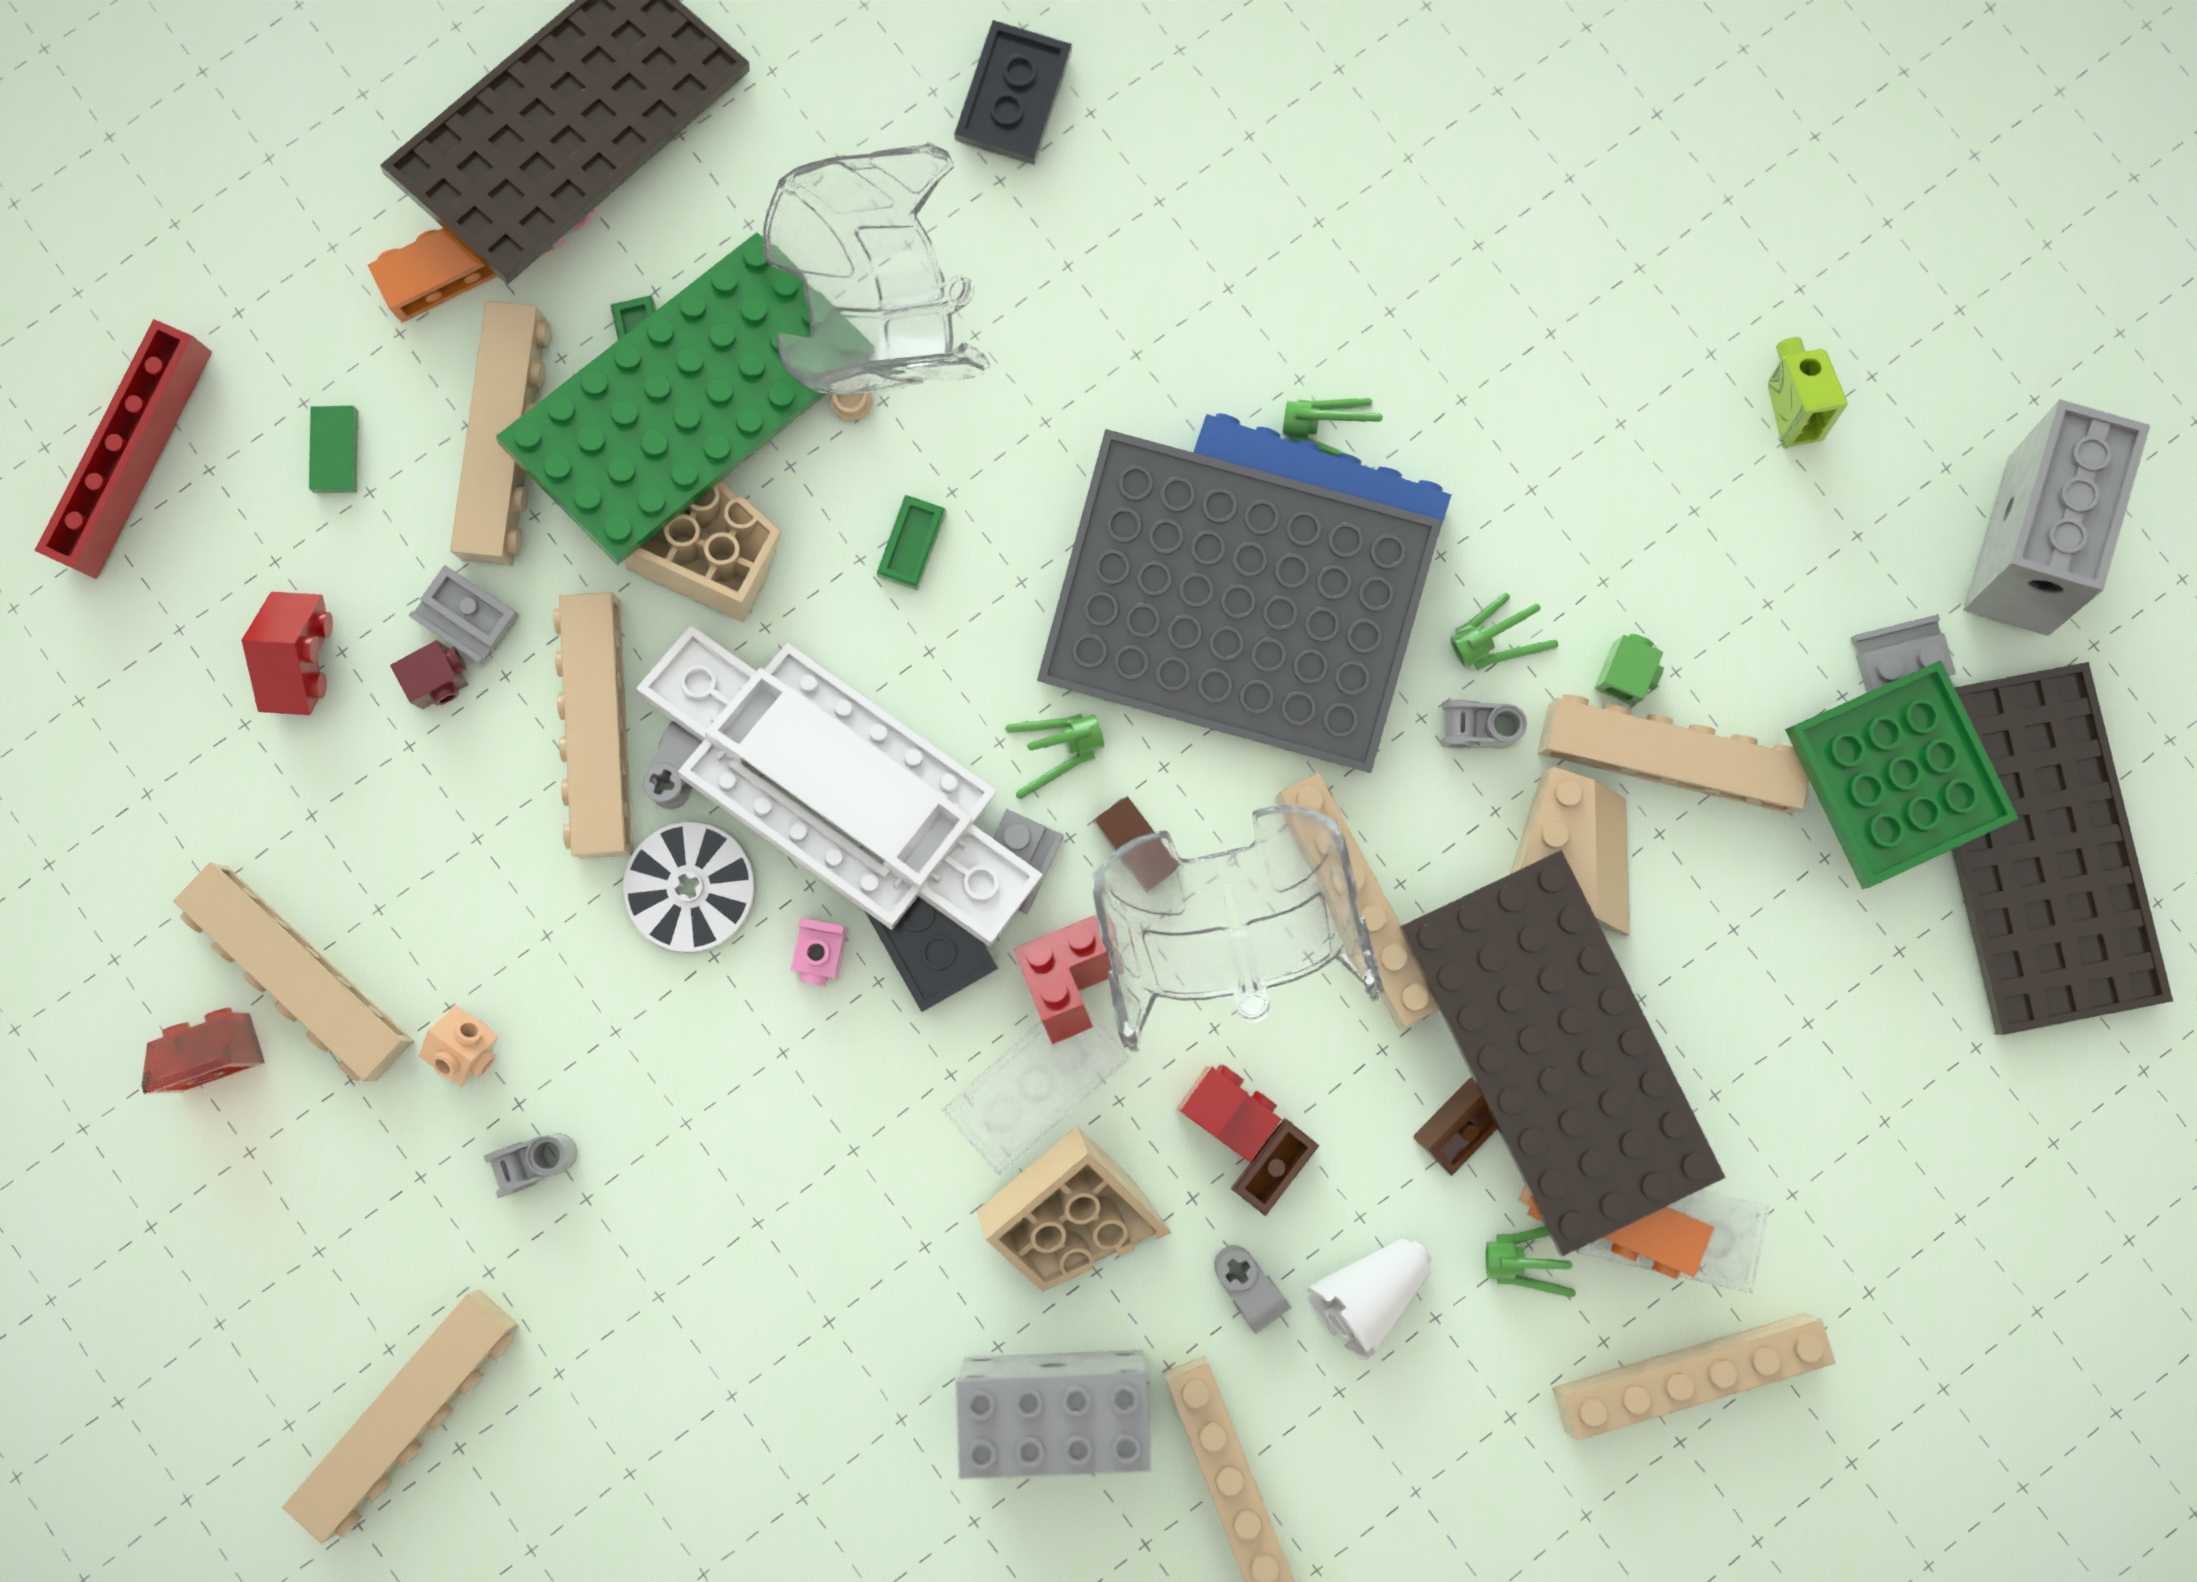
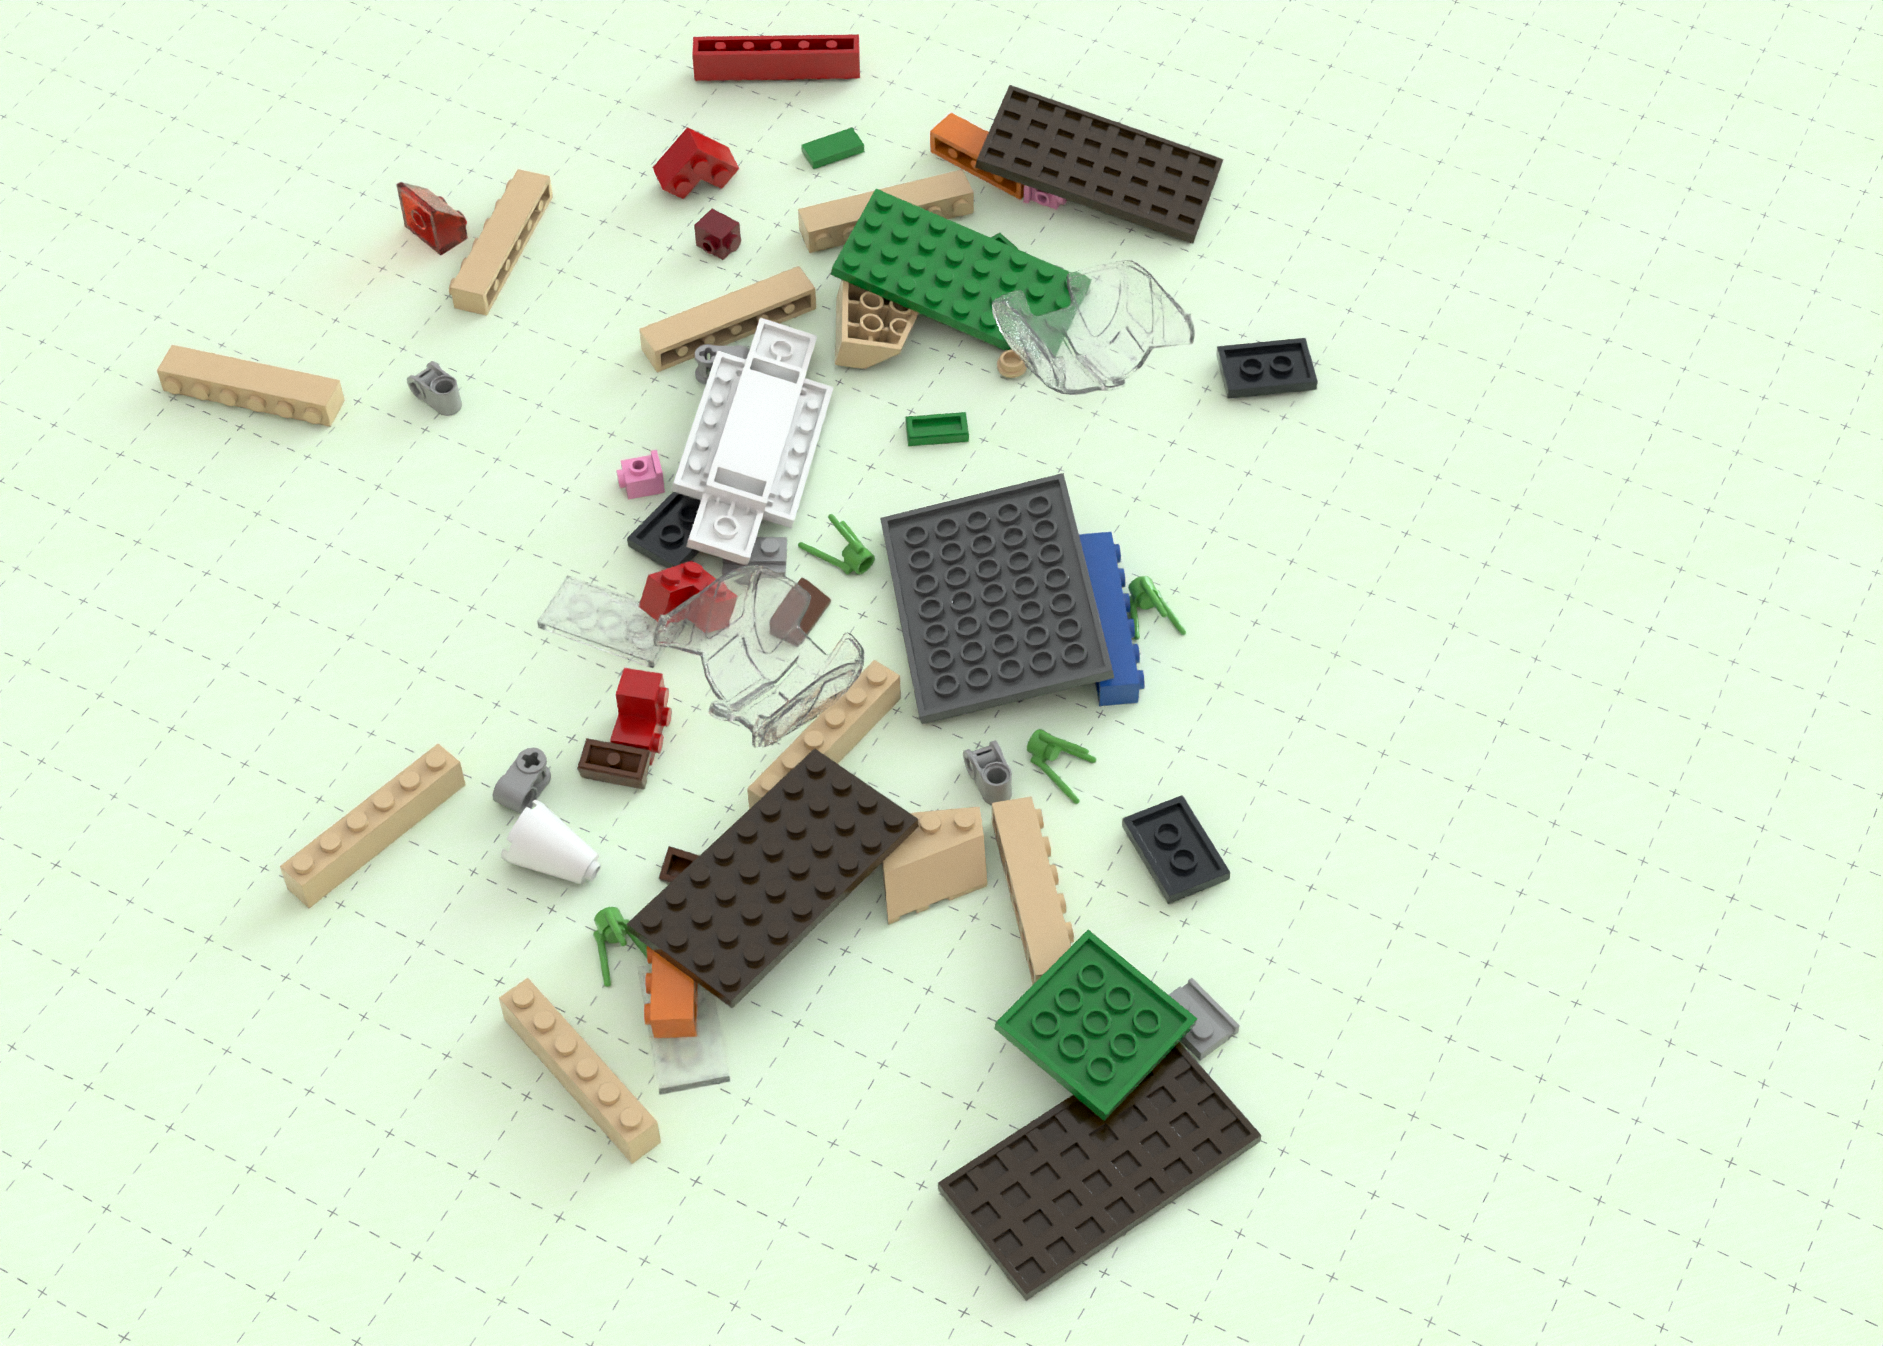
camera: 70 degrees right, 30 degrees down
(459, 1046) = (493, 326): light nougat brick -> none
(464, 615) = (764, 237): light grey plate -> none
(656, 876) = (631, 415): white piece -> none
(1053, 1414) = (390, 675): light grey gear -> none
(1068, 1213) = (529, 661): tan wedge -> none
(1630, 669) = (1081, 842): bright green brick -> none
(1680, 567) = (1175, 849): none -> black plate
(1804, 394) = (1346, 869): lime torso -> none
(2057, 518) = (1340, 1030): light grey gear -> none

